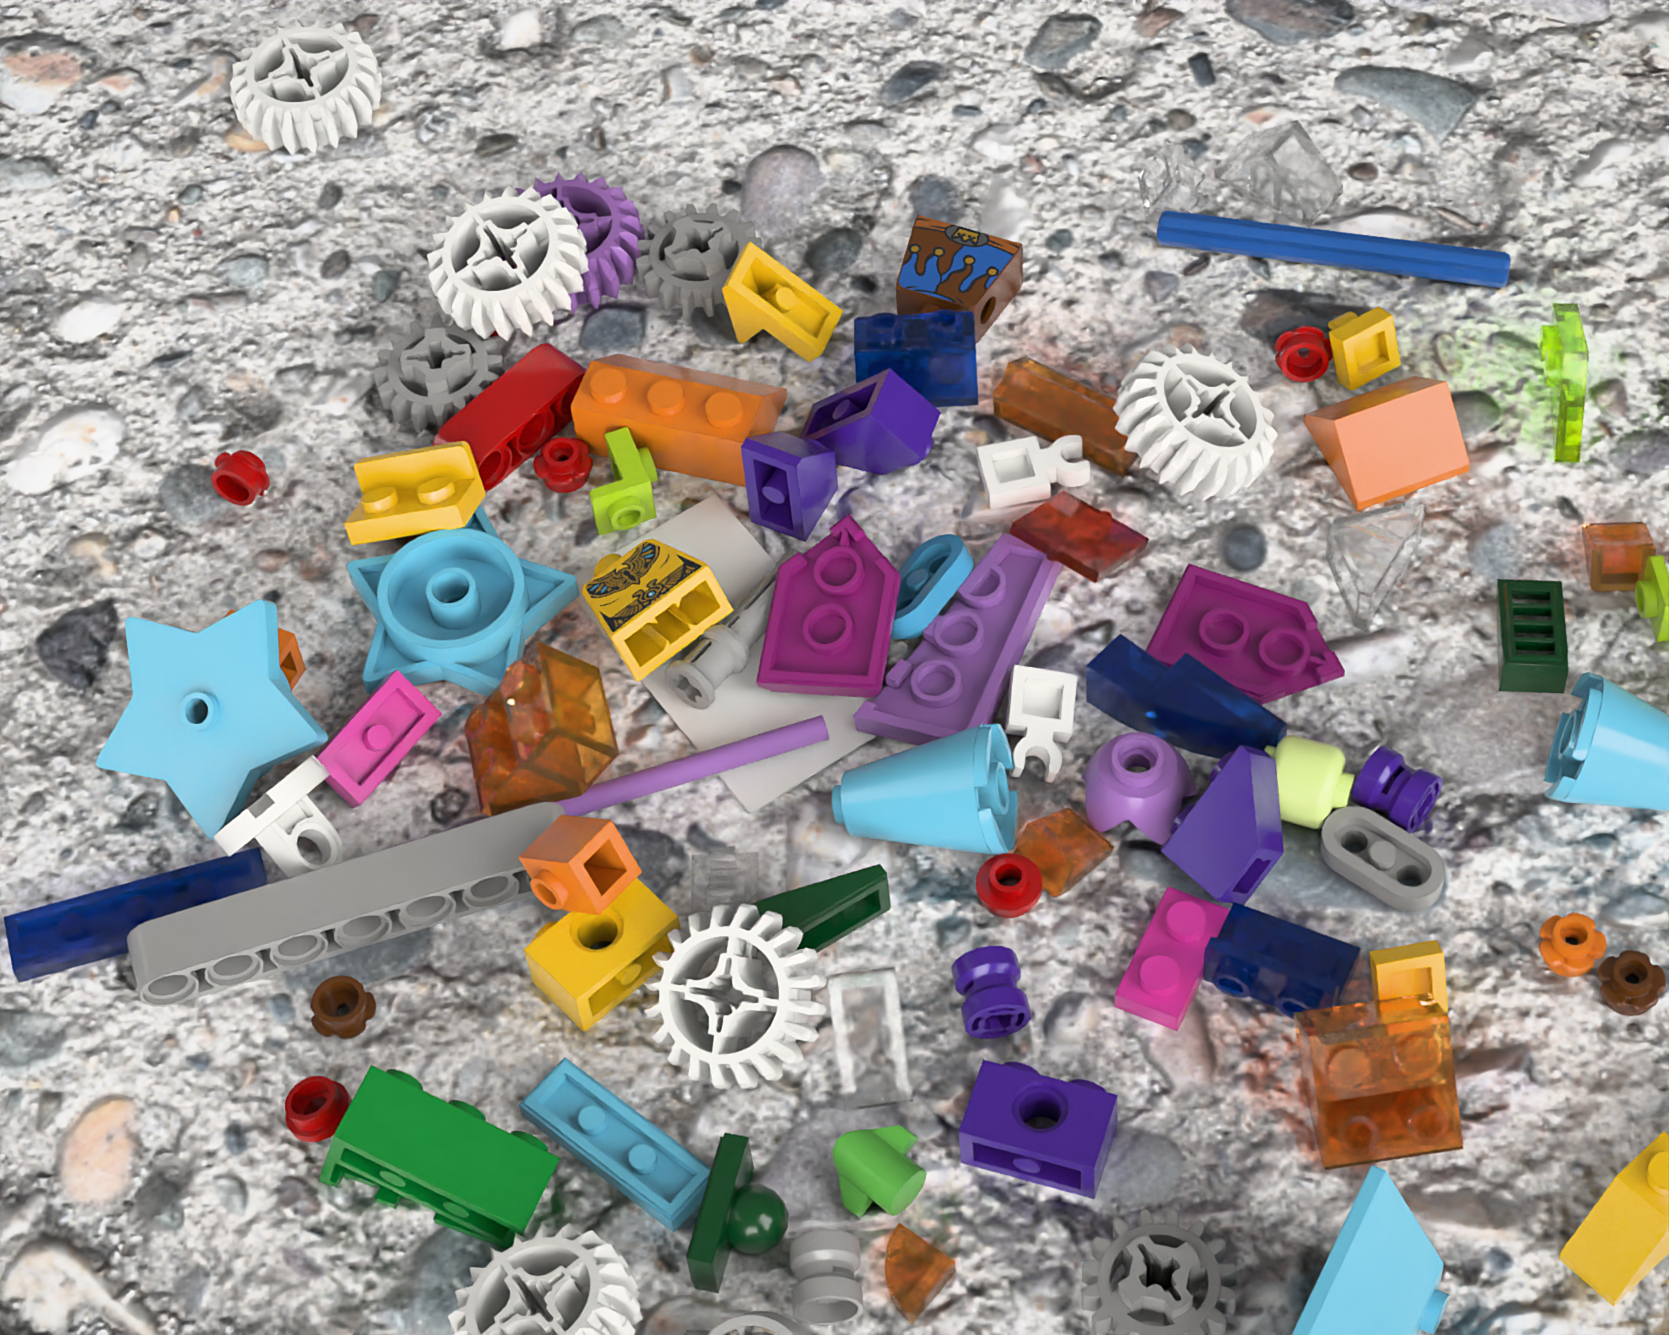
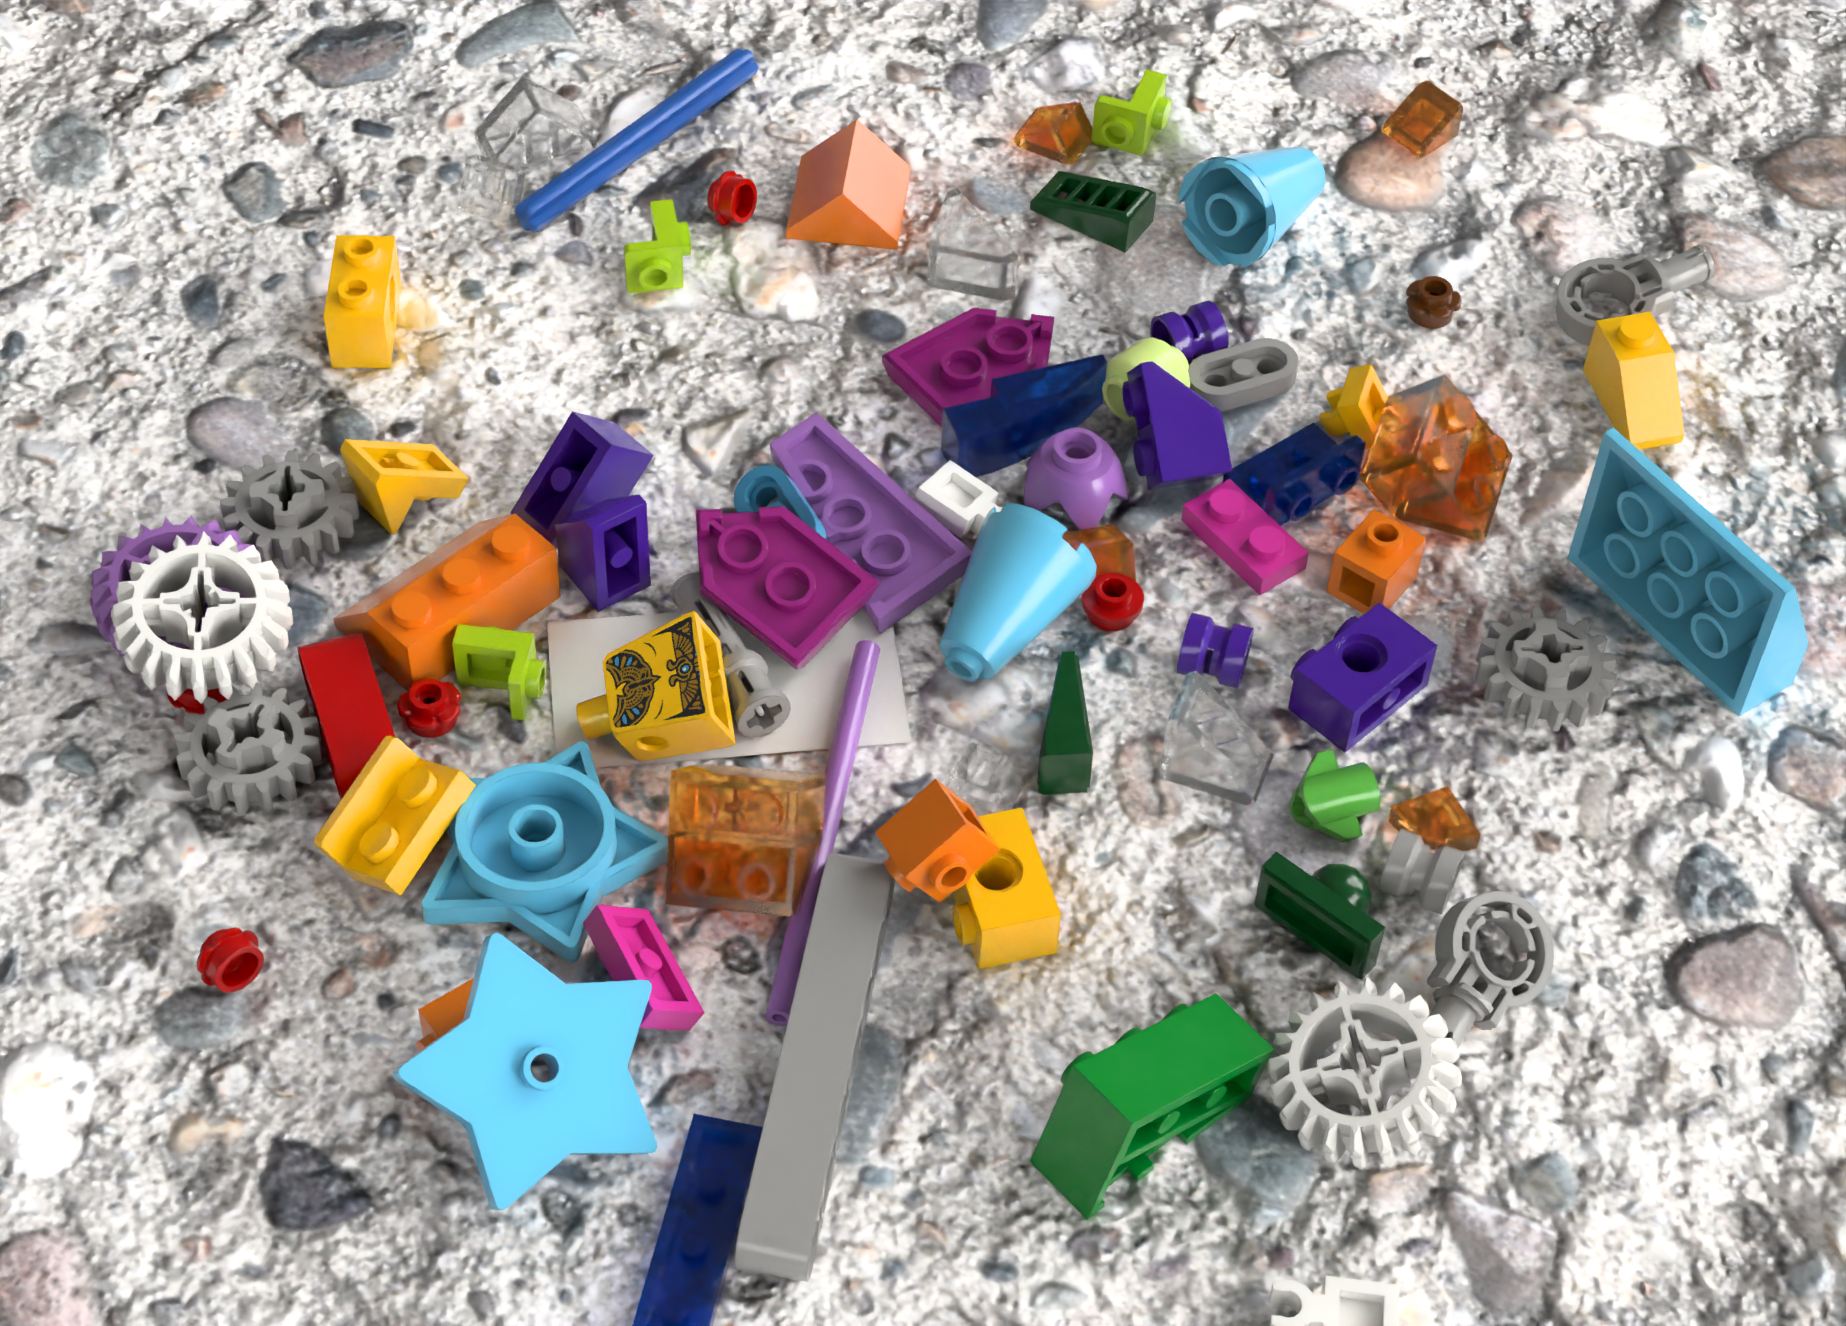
camera: 70 degrees left, 5 degrees down
(284, 816) = (691, 1066): white tile -> none
(316, 1108) = (1014, 1163): red plate -> none
(339, 993) = (923, 1101): reddish brown plate -> none
(617, 1143) = (1193, 967): medium azure tile -> none
(728, 1022) = (1169, 837): white gear -> none
(926, 350) = (537, 405): clear blue bracket -> none
(958, 272) = (472, 361): torso -> none
(962, 171) = (362, 301): none -> yellow brick
(1022, 472) = (710, 409): white plate -> none
(1060, 406) = (675, 356): clear orange piece -> none
(1079, 536) = (810, 400): clear red piece -> none
(1195, 421) = (767, 273): white gear -> none
(1198, 1081) = (1376, 563): none -> orange brick
(1203, 327) = (658, 262): none -> lime bracket
(1363, 346) = (758, 160): yellow tile -> none
(1565, 372) = (889, 68): clear neon green wing -> none
(1566, 958) = (1380, 316): orange plate -> none

